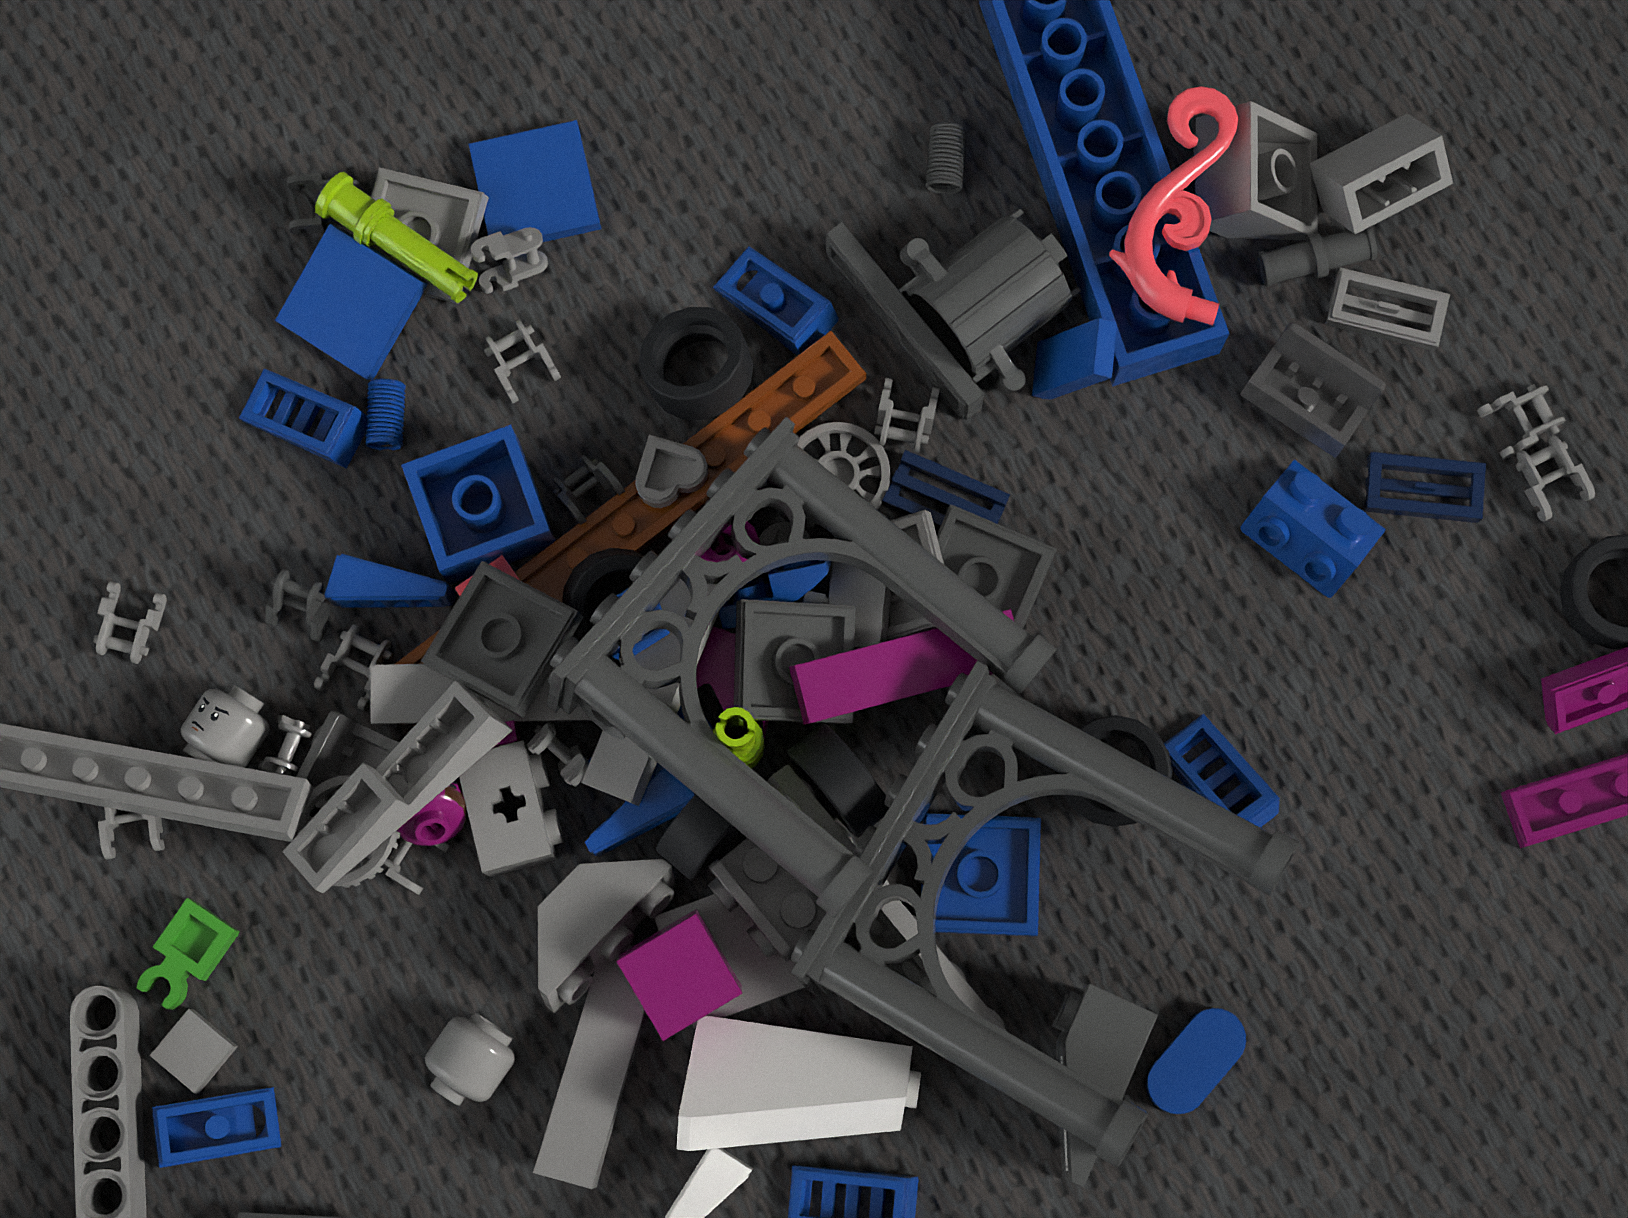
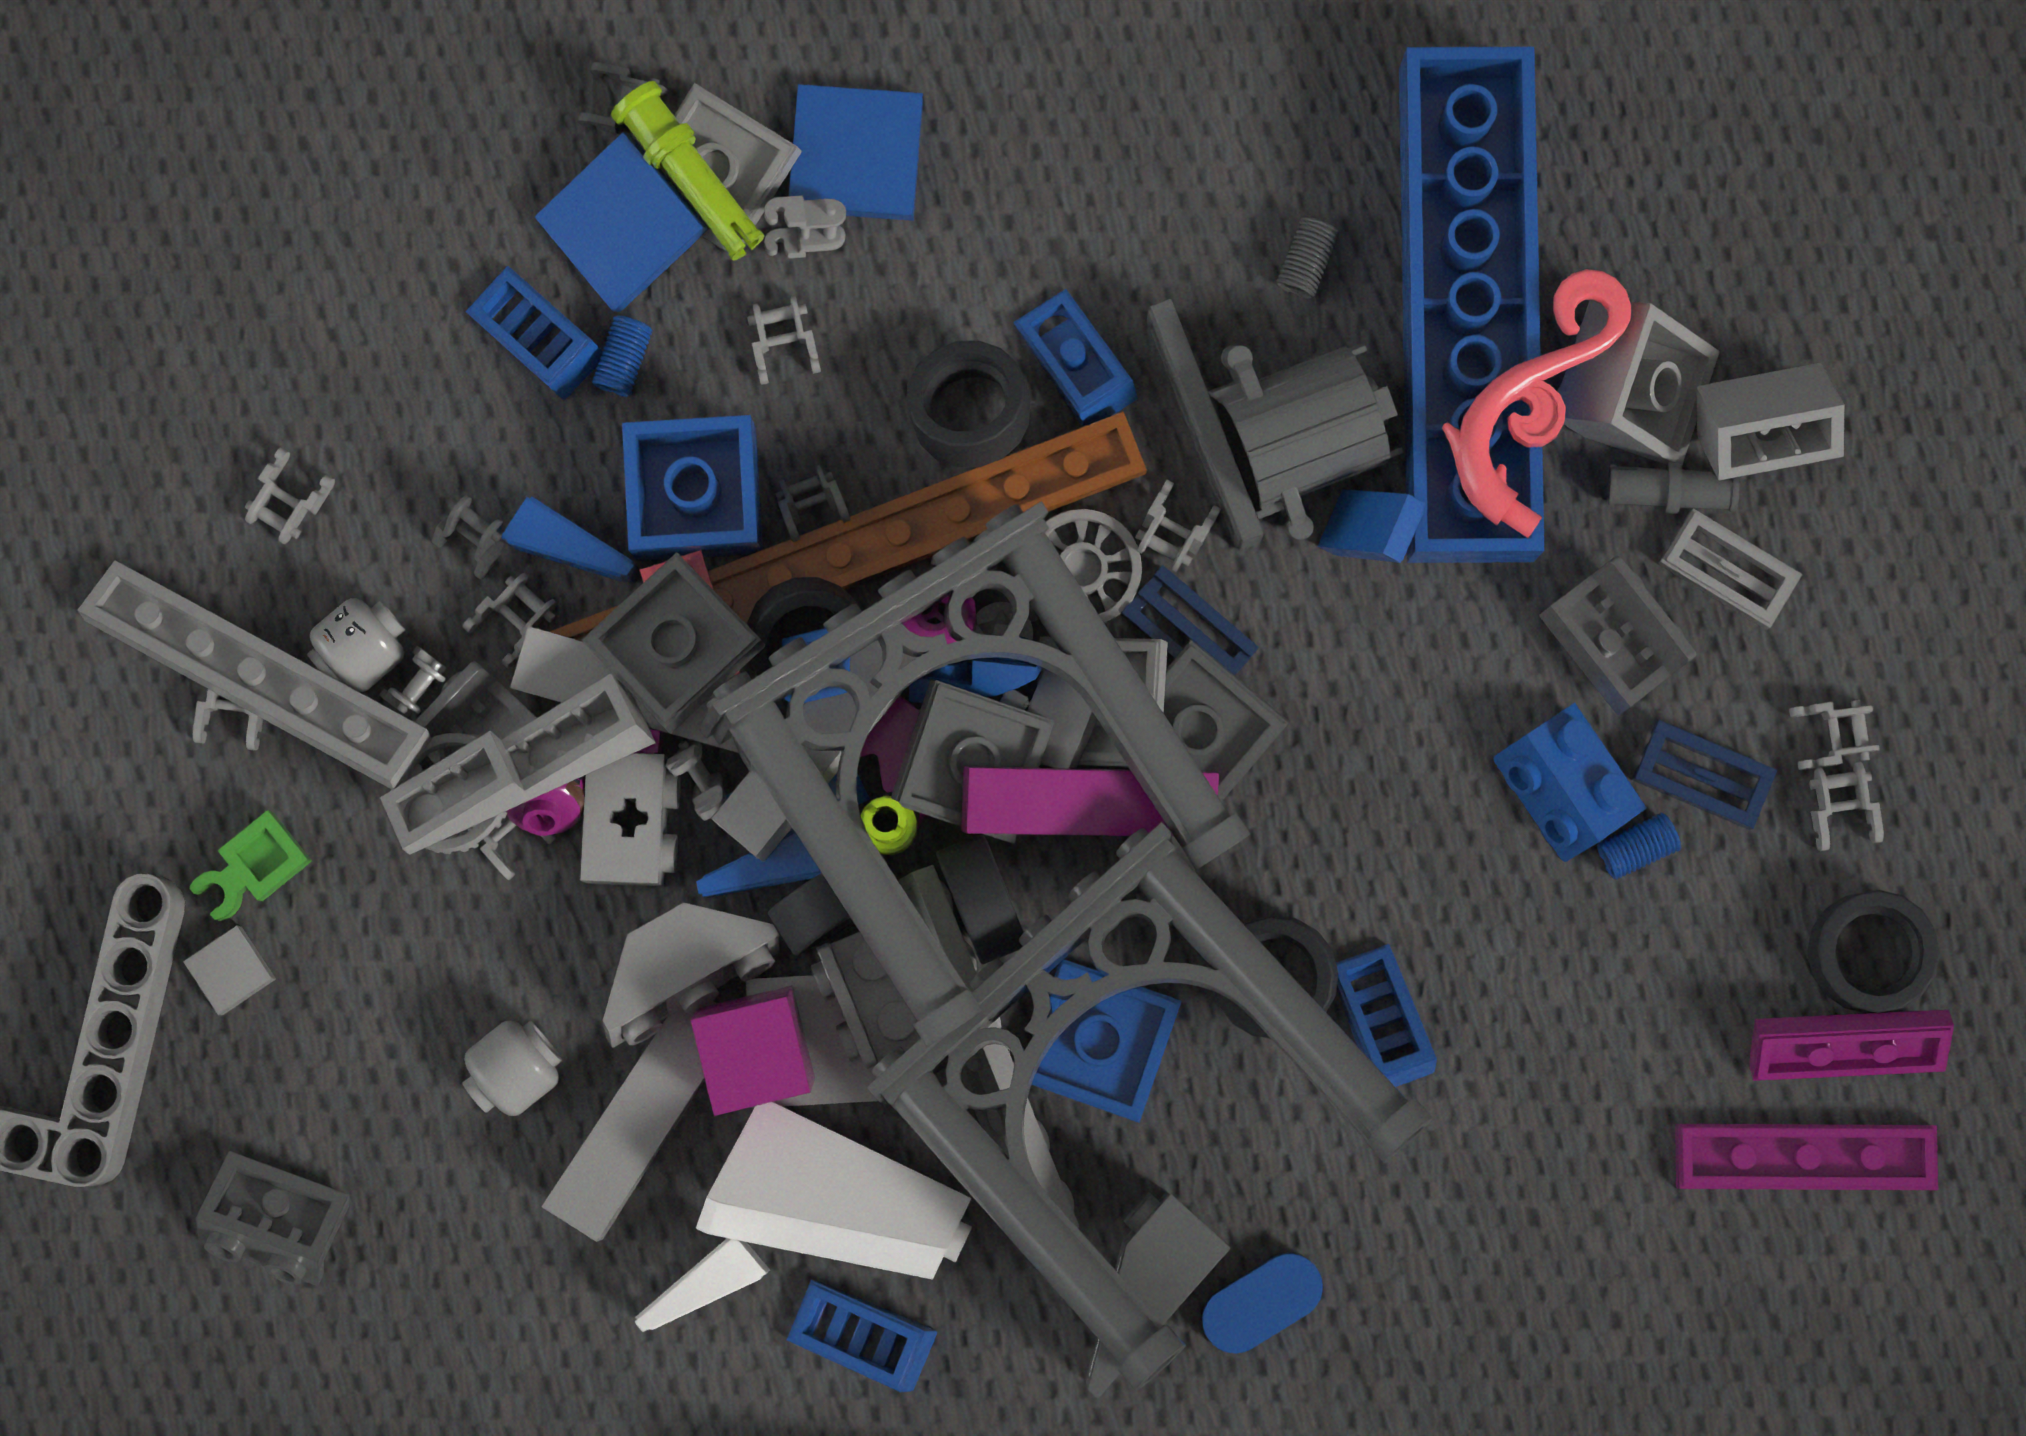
camera: 15 degrees right, 5 degrees up
(214, 1127) = (228, 1056): blue slope -> none
(669, 470) = (902, 513): light grey tile -> none
(1388, 562) = (1612, 846): none -> blue piece

